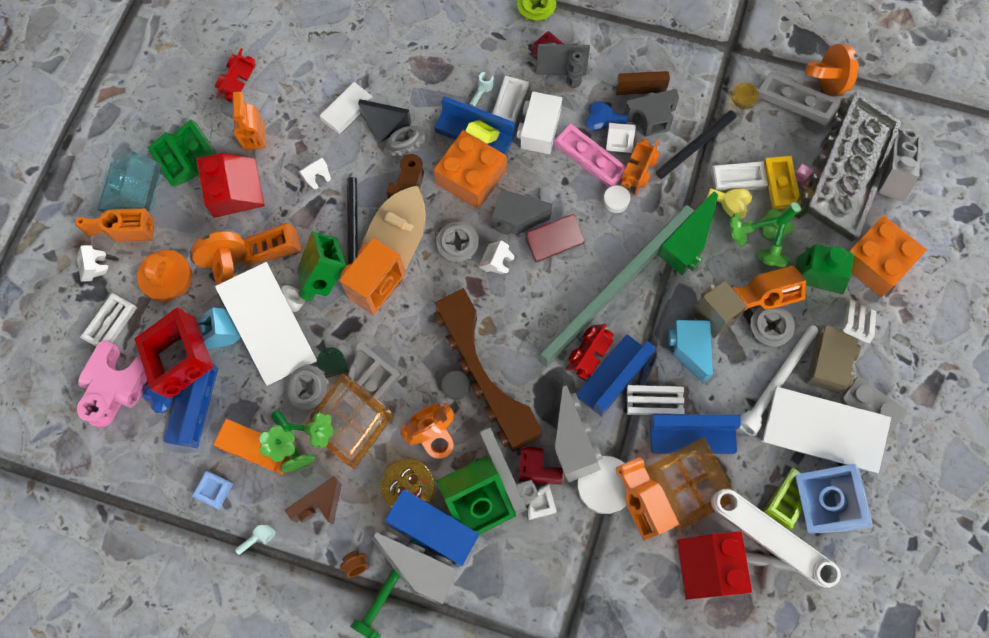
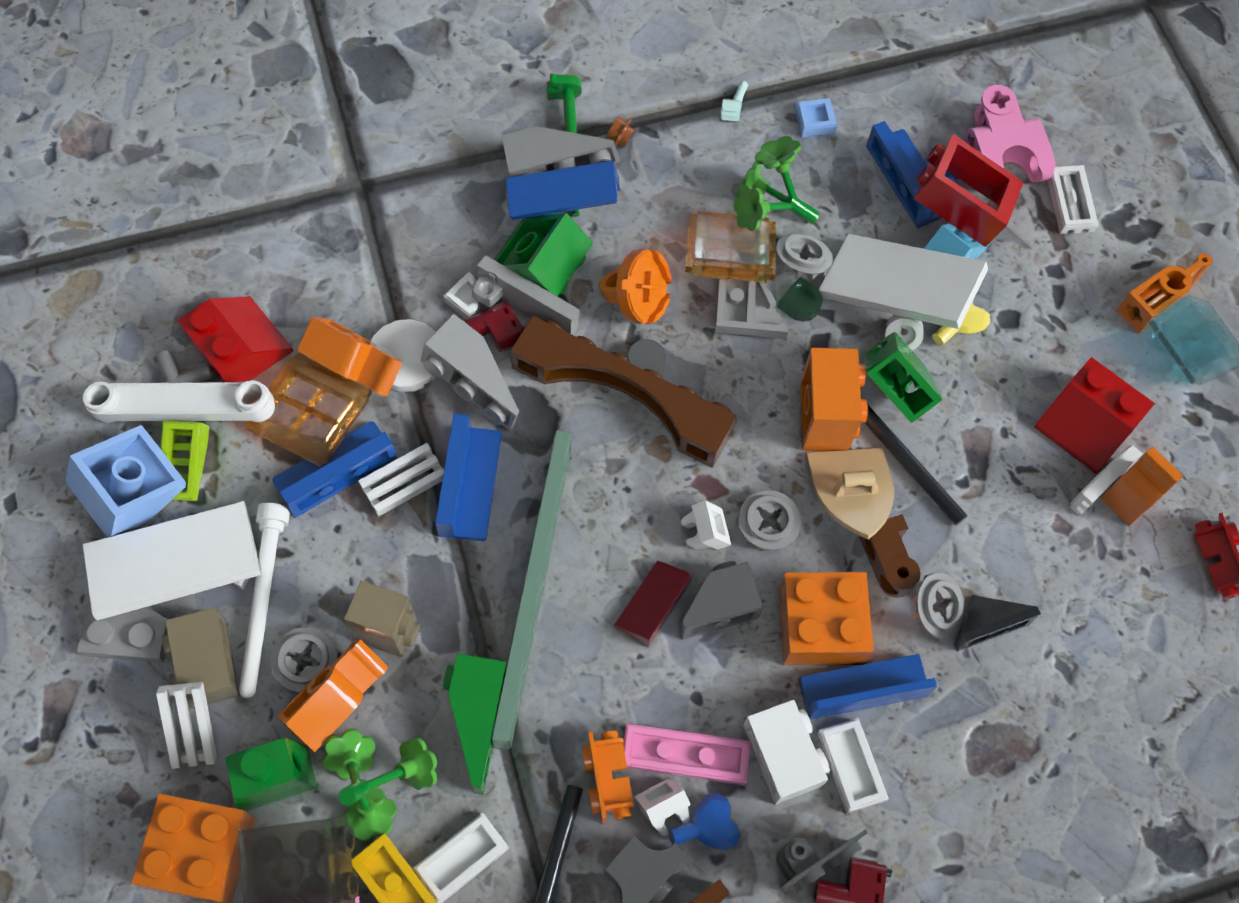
camera: 140 degrees right, 5 degrees down
(86, 263) = (1154, 232): white tile -> none
(164, 275) = (1064, 277): orange tile -> none
(180, 152) = (1185, 423): green slope -> none
(219, 253) = (1024, 322): orange tile -> none
(245, 444) = (817, 168): orange piece -> none
(259, 146) = (1105, 479): none -> white tile
(287, 244) = (967, 398): orange slope -> none
(317, 167) = (1016, 494): white tile -> none
(323, 497) = (696, 162): reddish brown slope -> none
(345, 108) = (1054, 597): white tile -> none
(408, 476) = (619, 227): clear yellow head -> none
(482, 131) = (848, 673): neon yellow tile -> none
(483, 86) = (904, 757): light aqua hand -> none
(582, 358) = (516, 469): red hinge -> none
(616, 199) = (610, 710): white tile -> none
(693, 346) = (393, 562): medium azure slope -> none
(734, 201) = (449, 811): light yellow rock -> none

